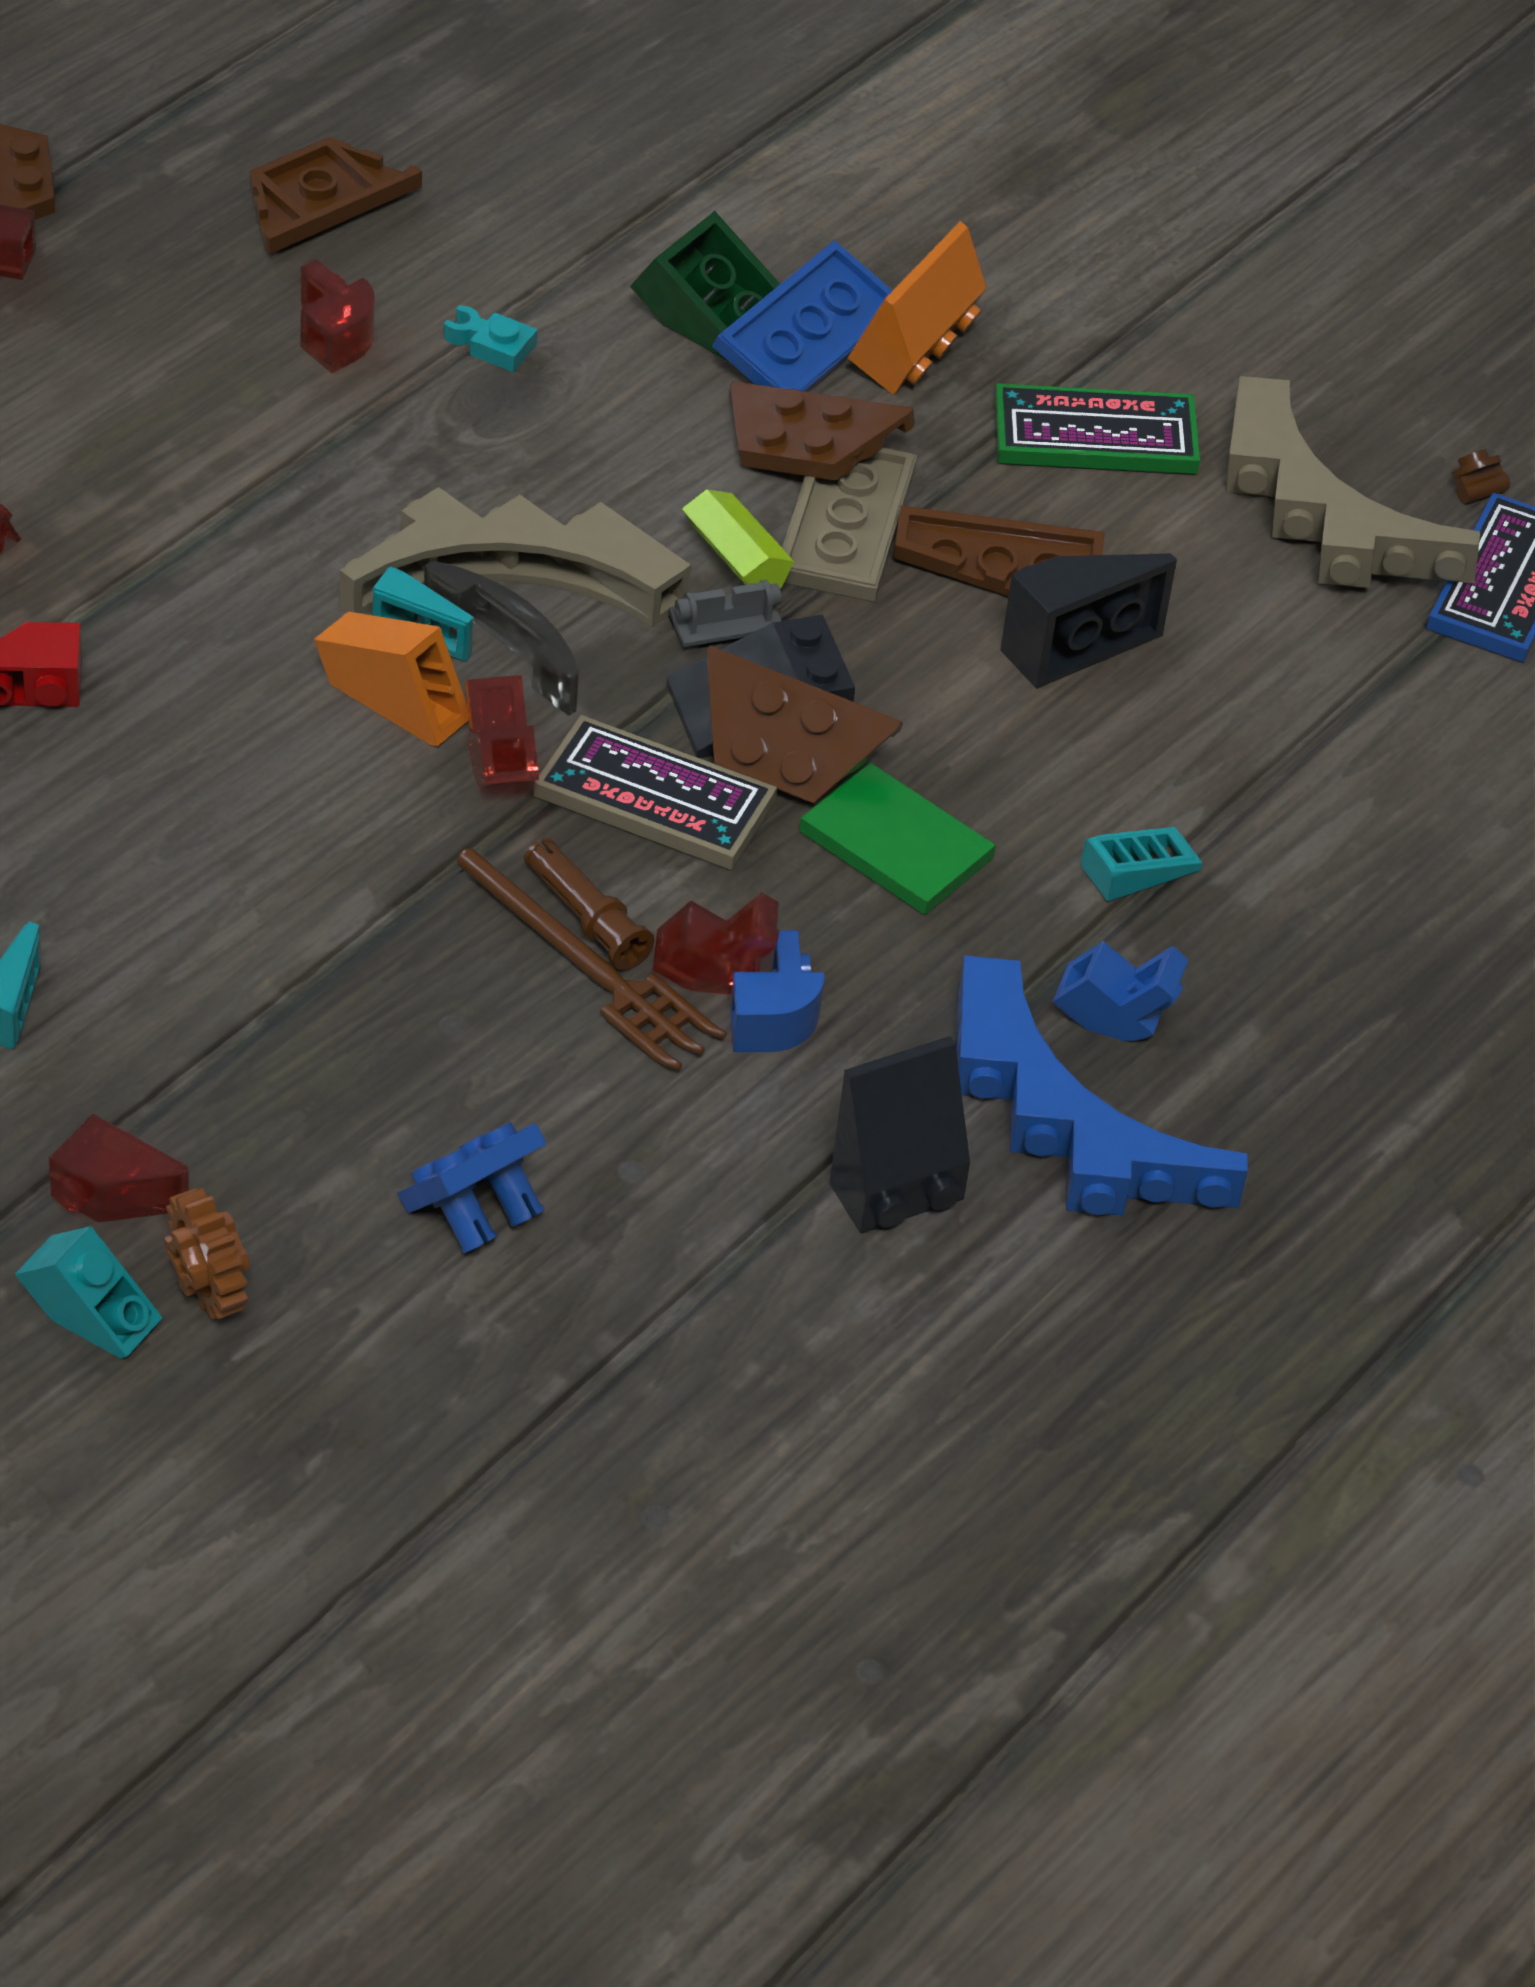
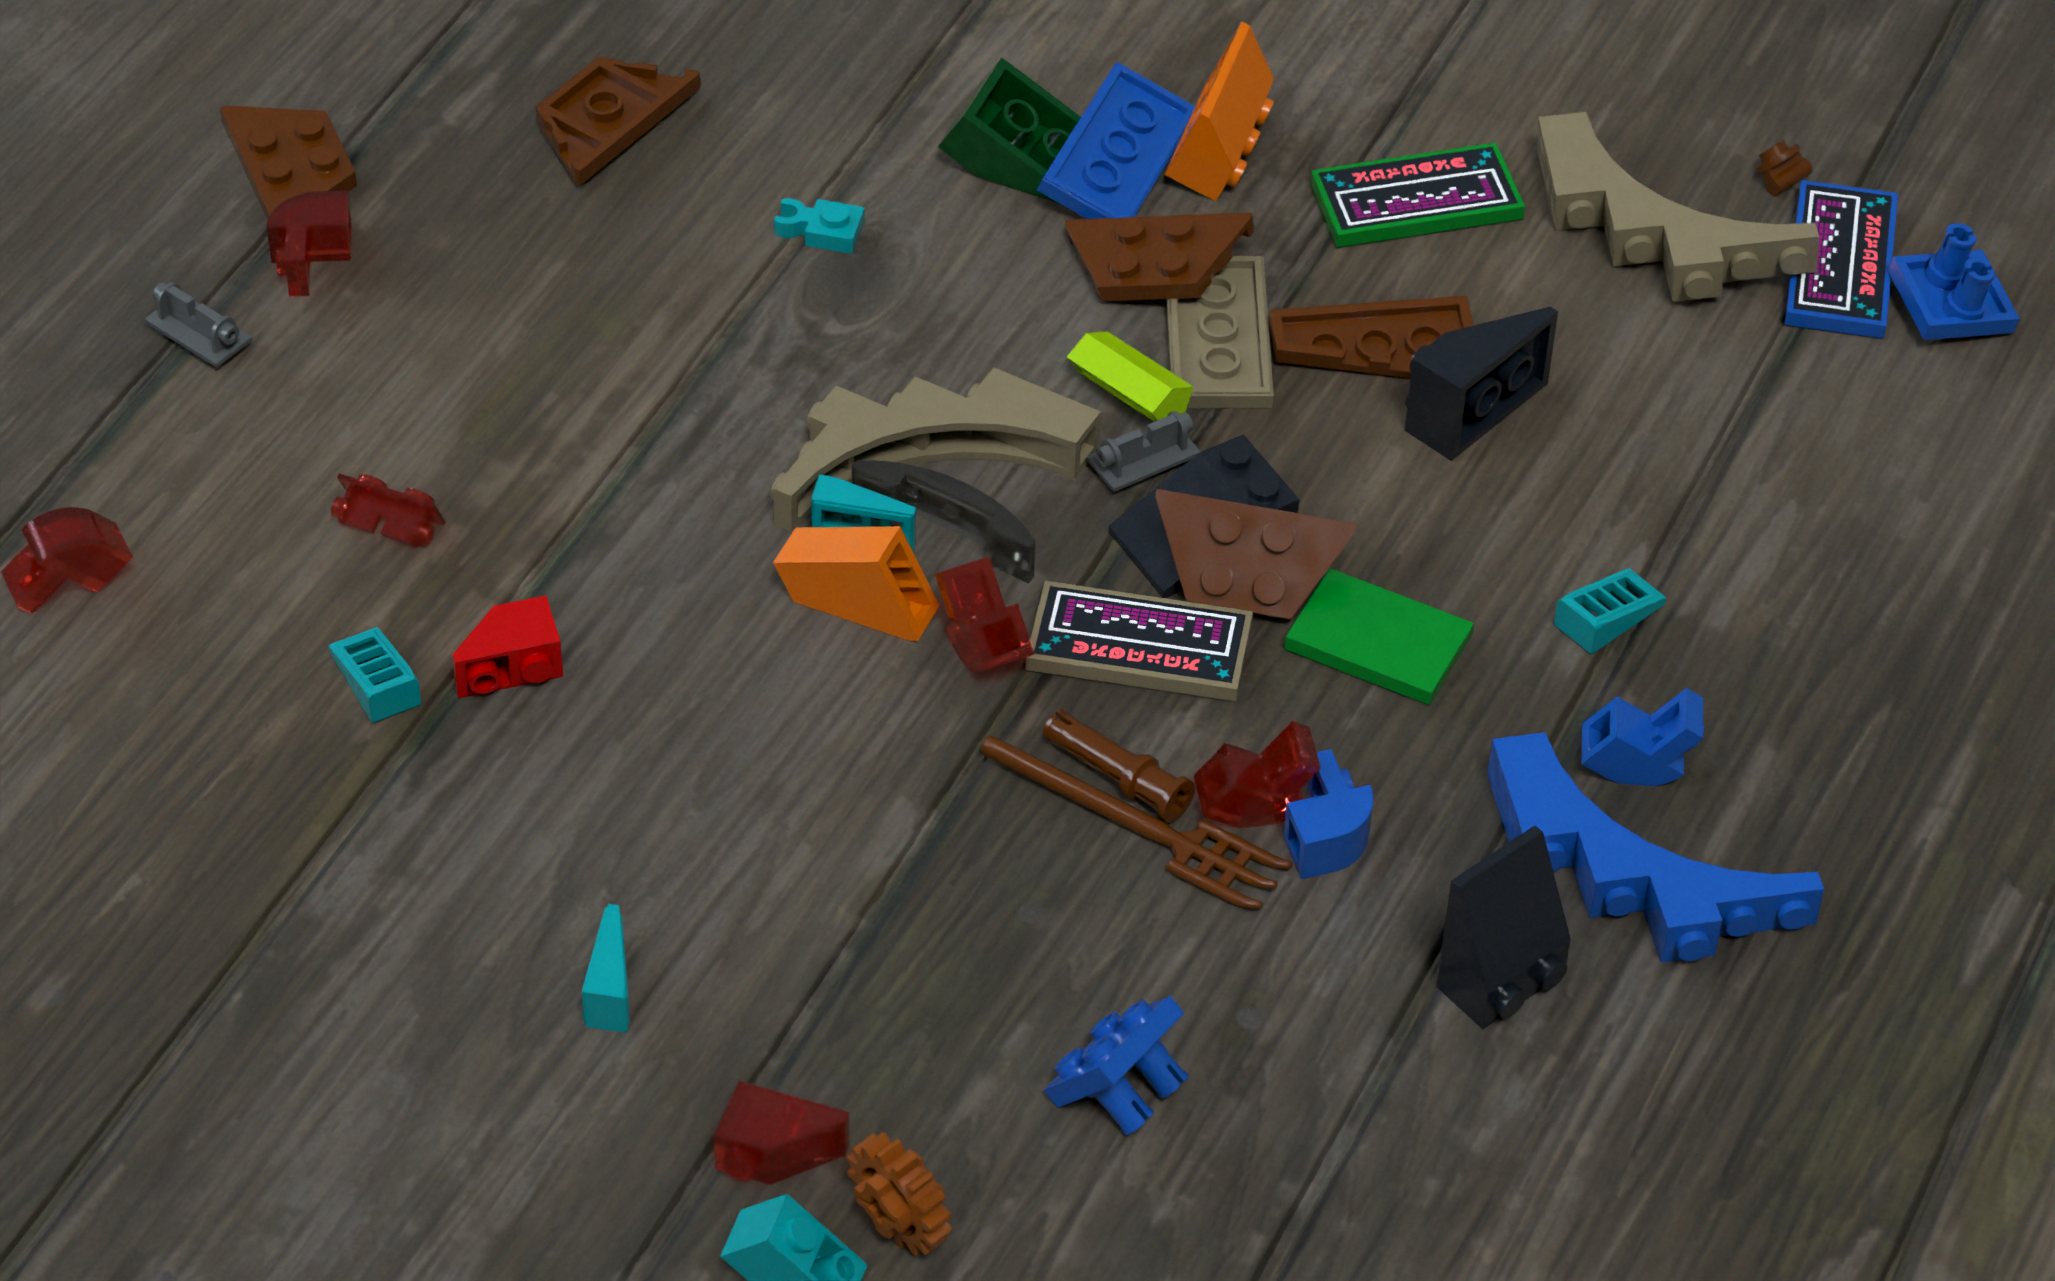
camera: 10 degrees left, 0 degrees up
(335, 317) = (670, 233): clear red brick -> none

